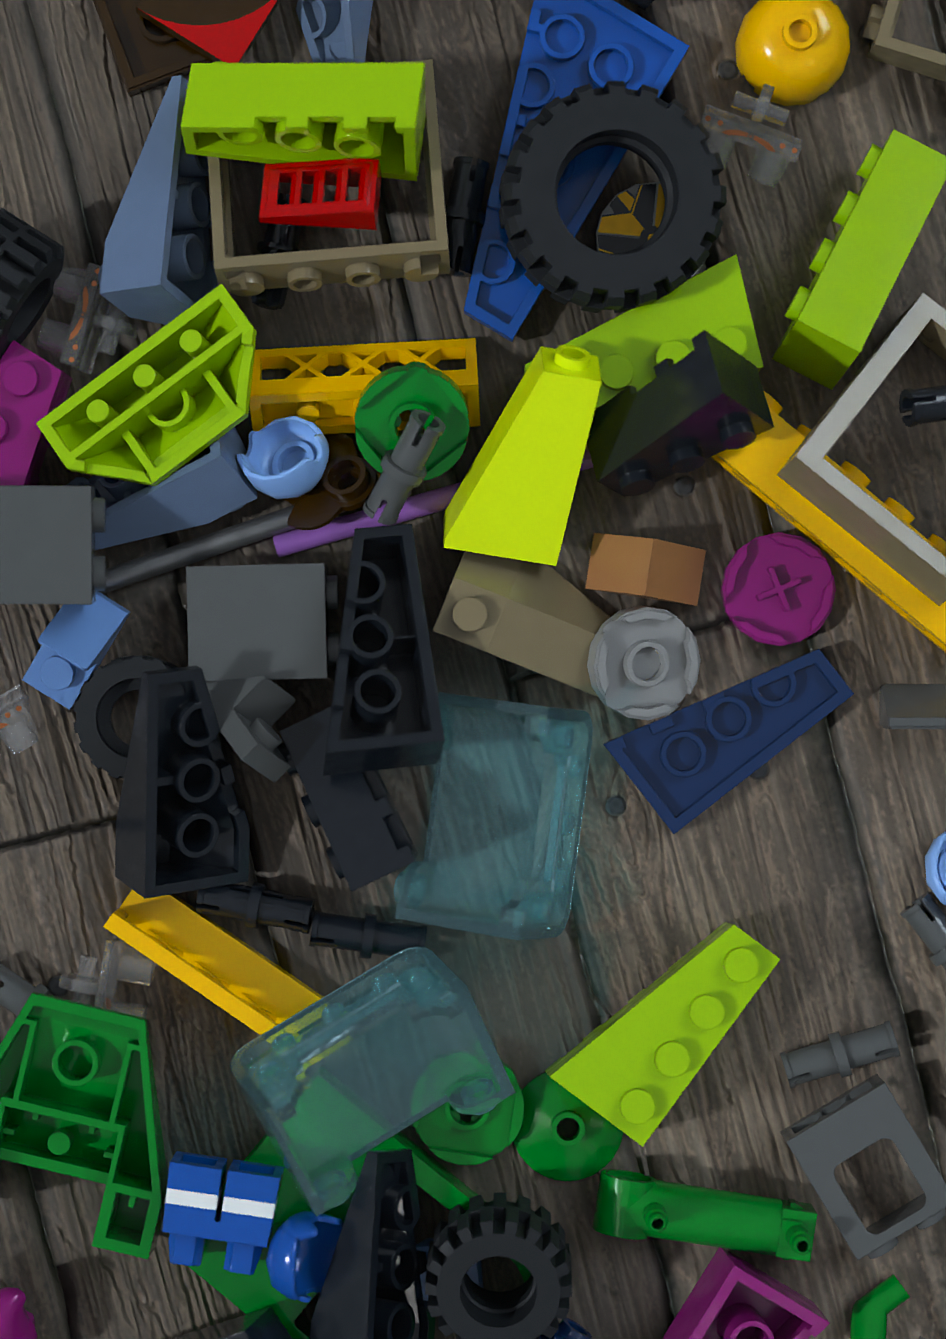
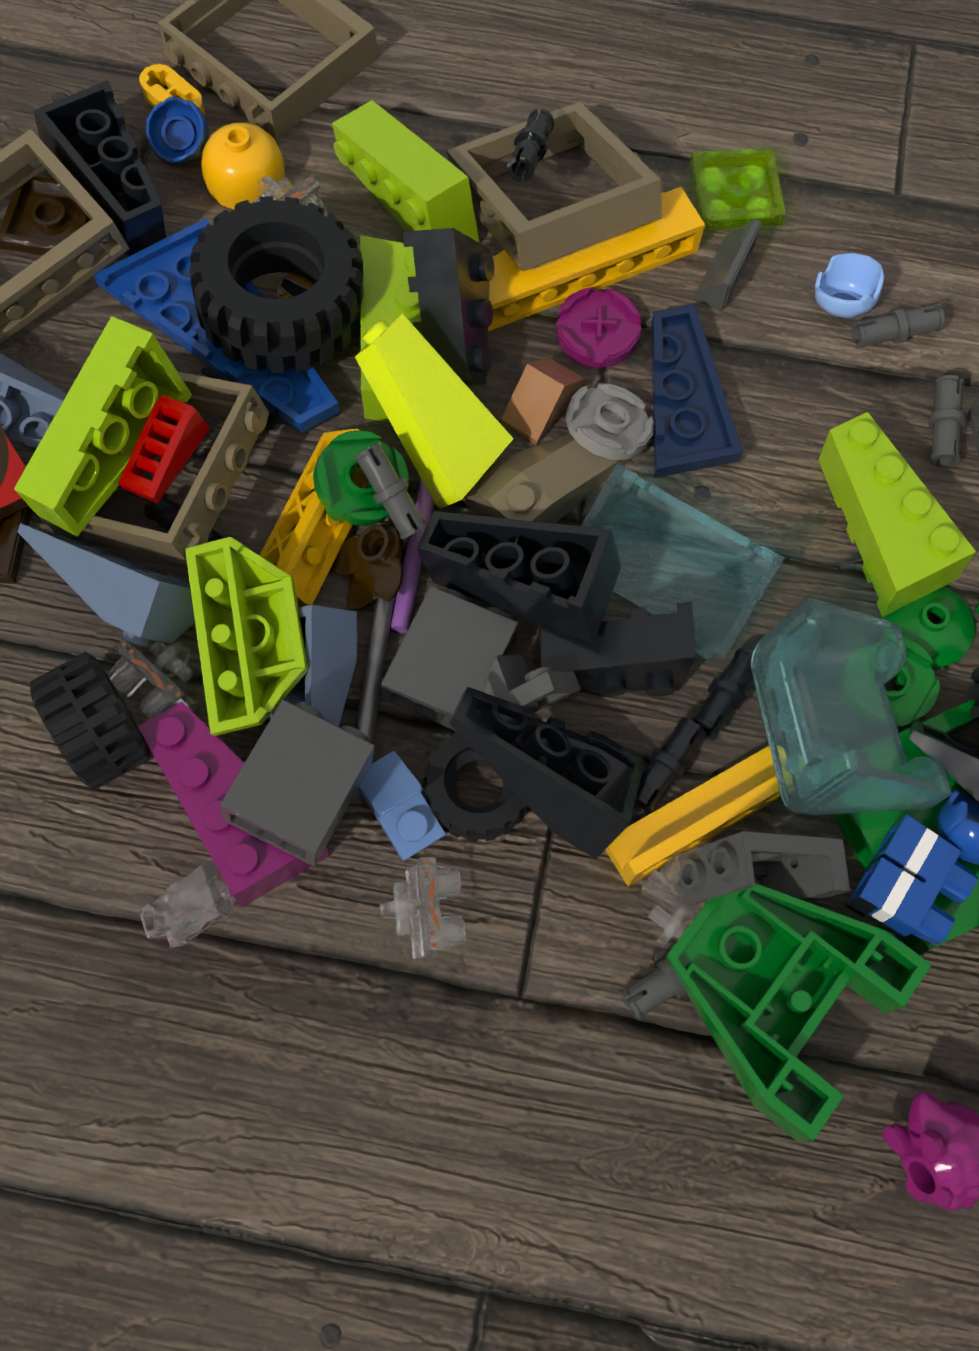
camera: 65 degrees left, 20 degrees down
(187, 1087) = (789, 864): none -> dark grey window
(285, 457) = (338, 578): light blue hair -> none

